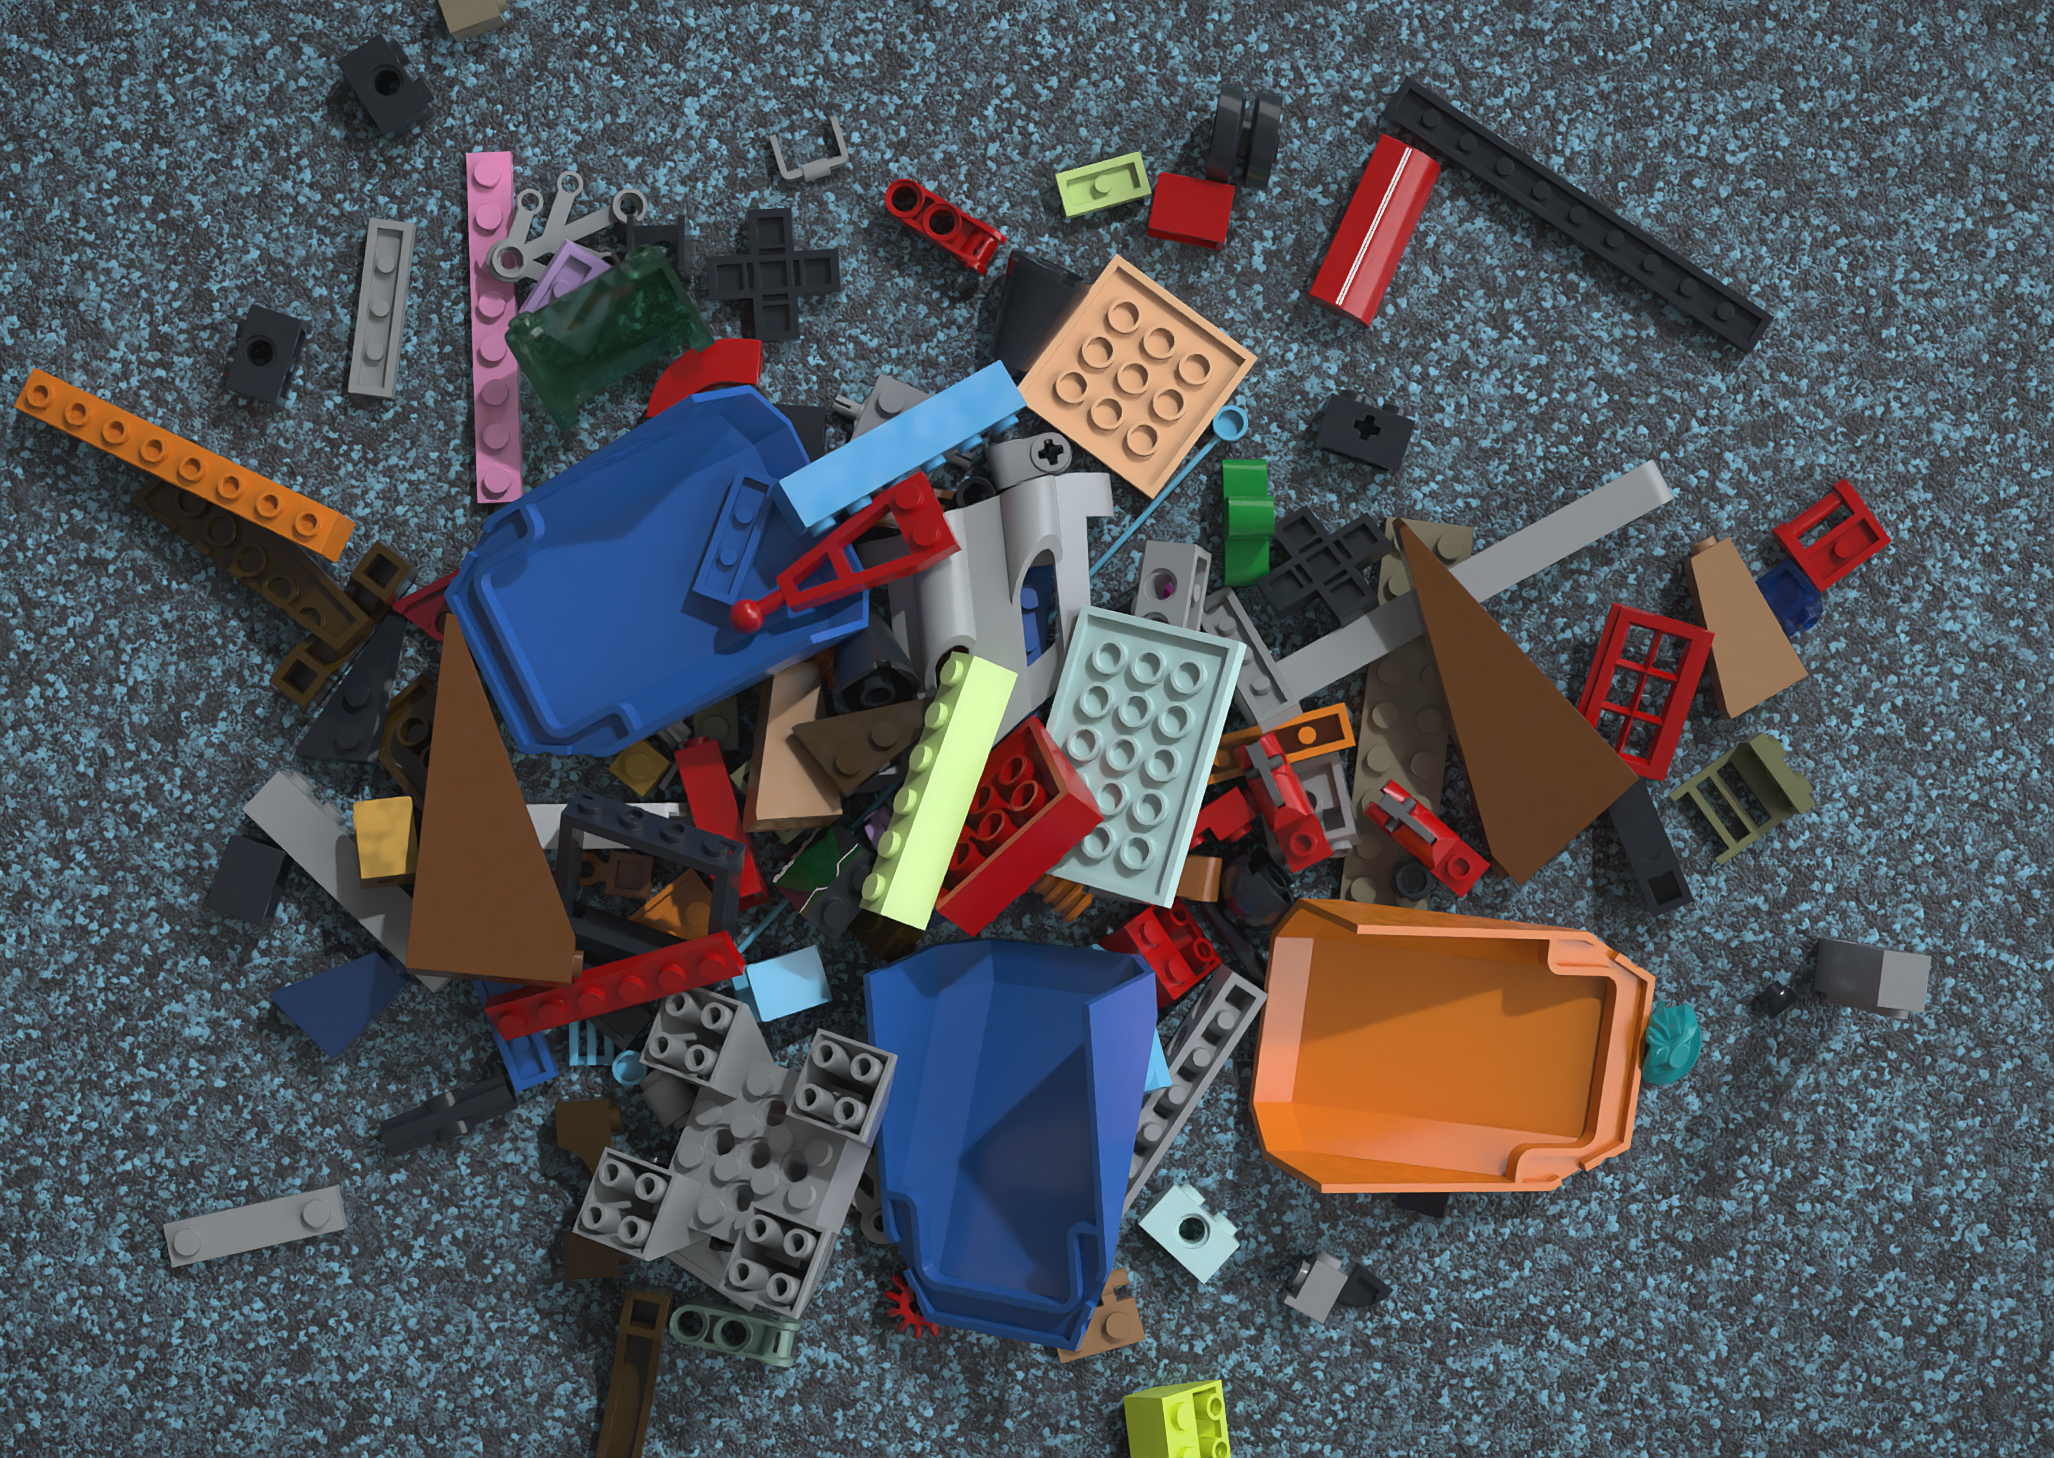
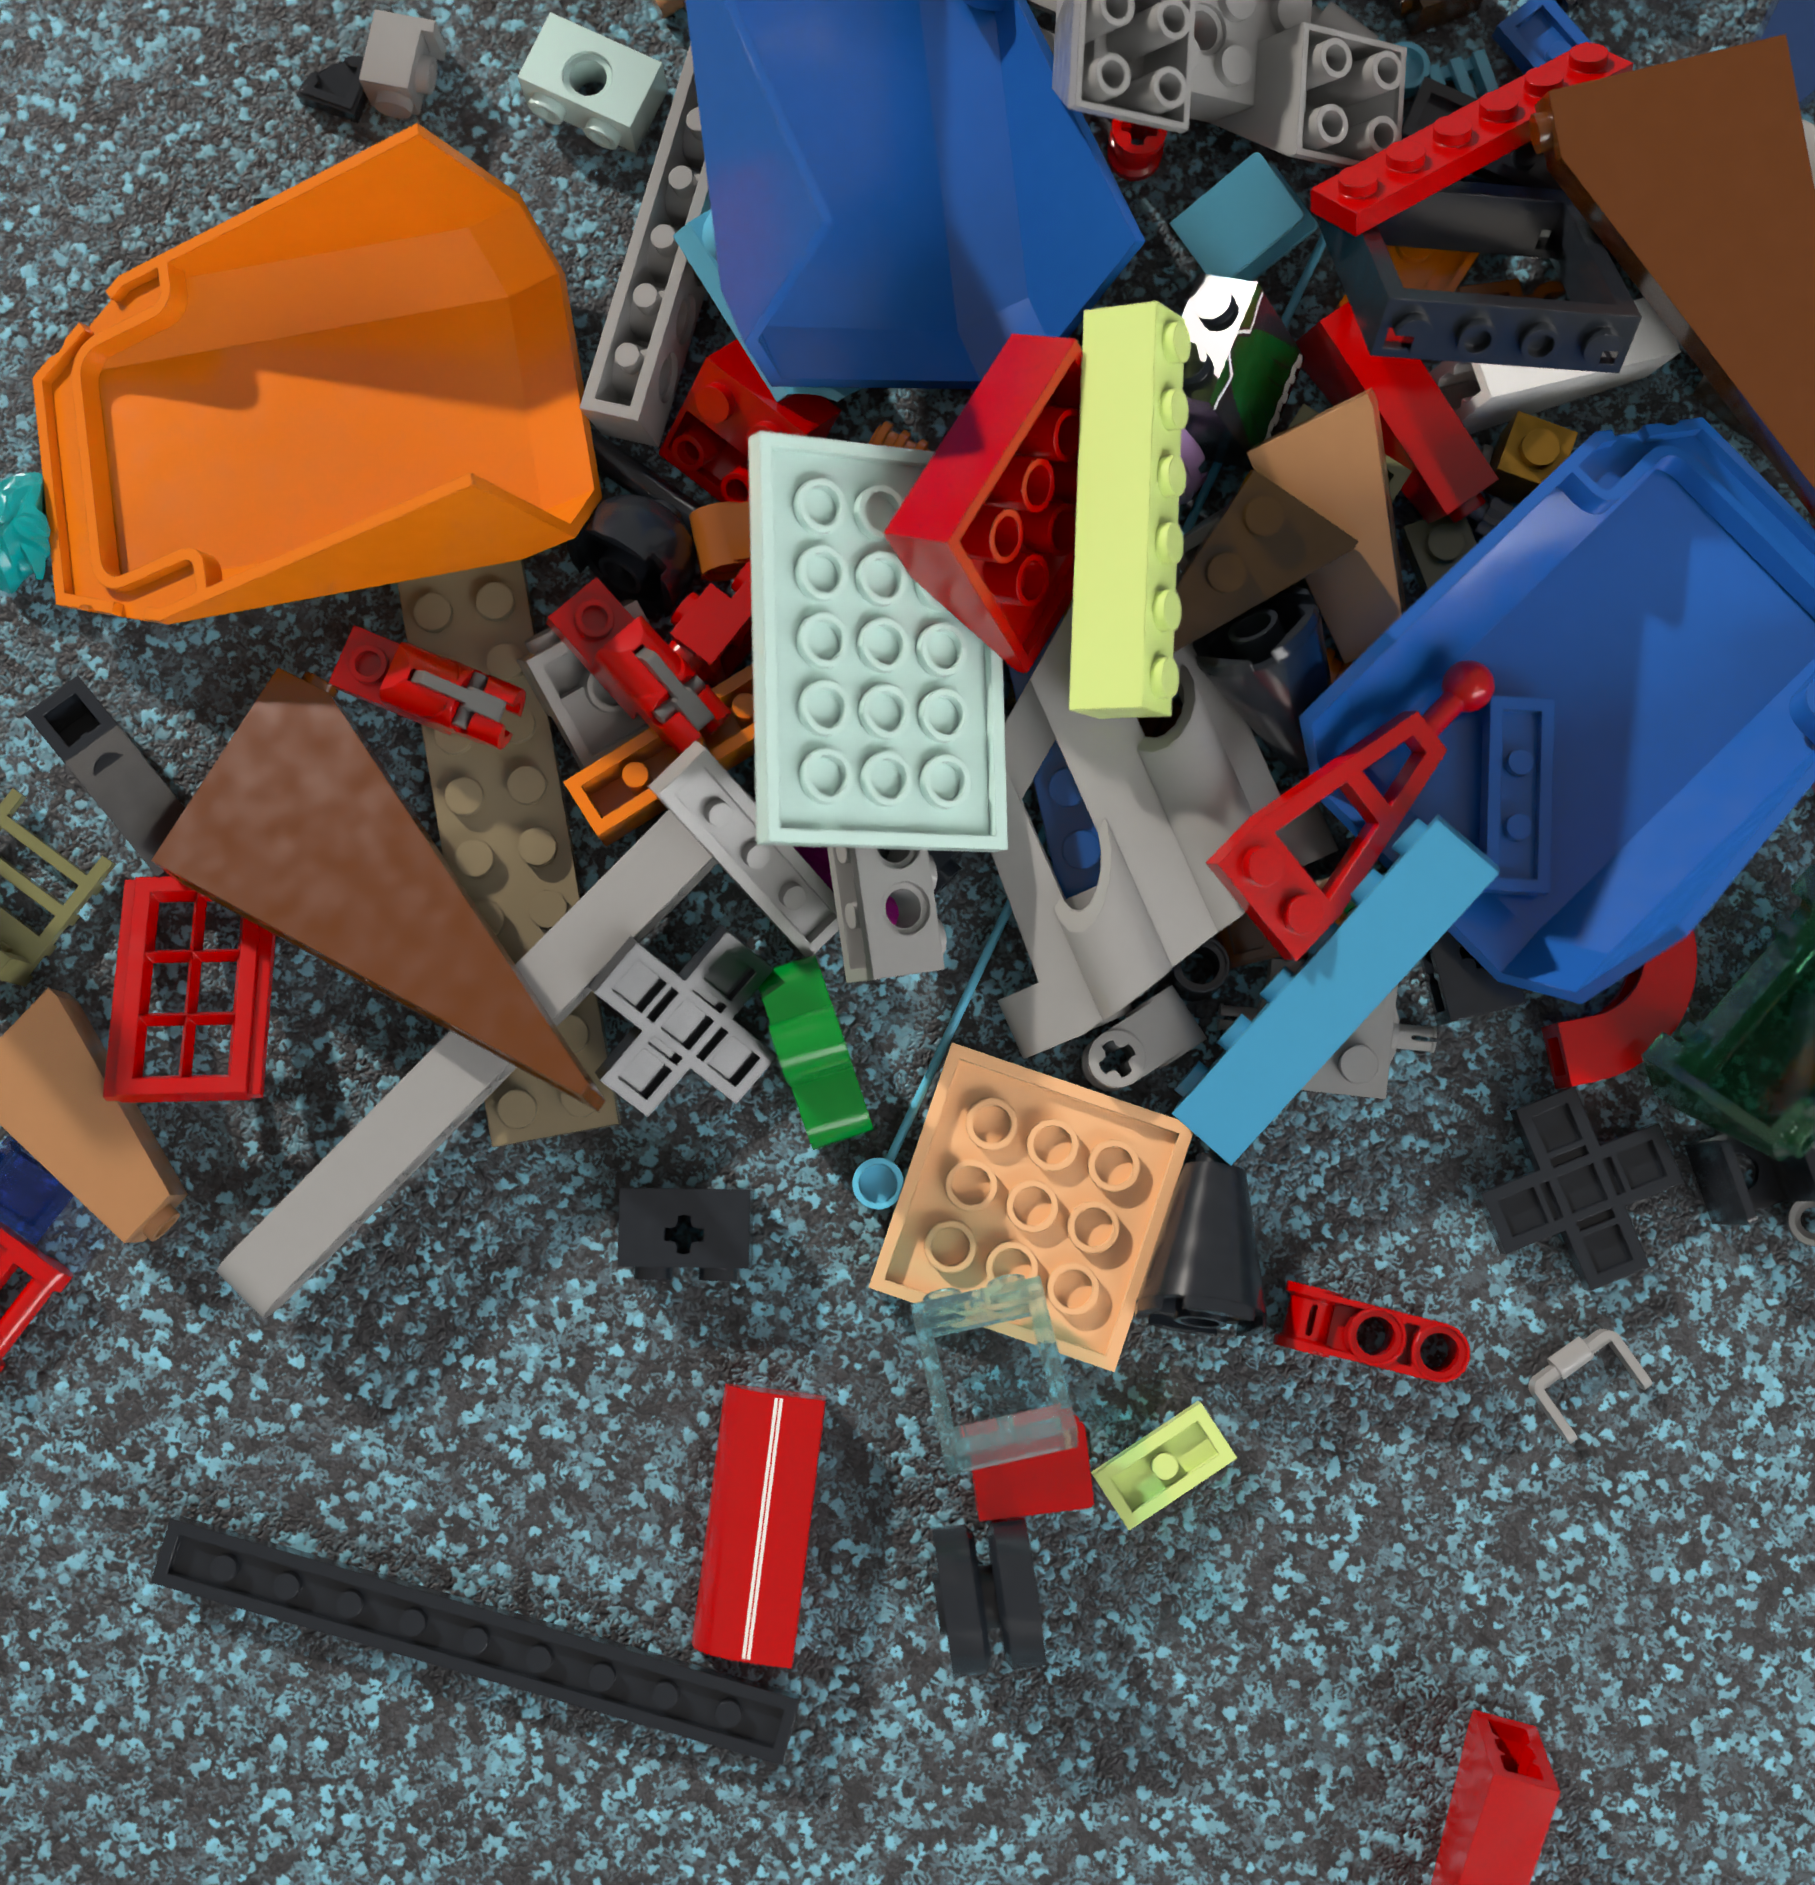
camera: 160 degrees right, 5 degrees down
(1203, 231) = (1012, 1435): none -> clear light blue window
(1403, 888) = (434, 613): black plate -> none

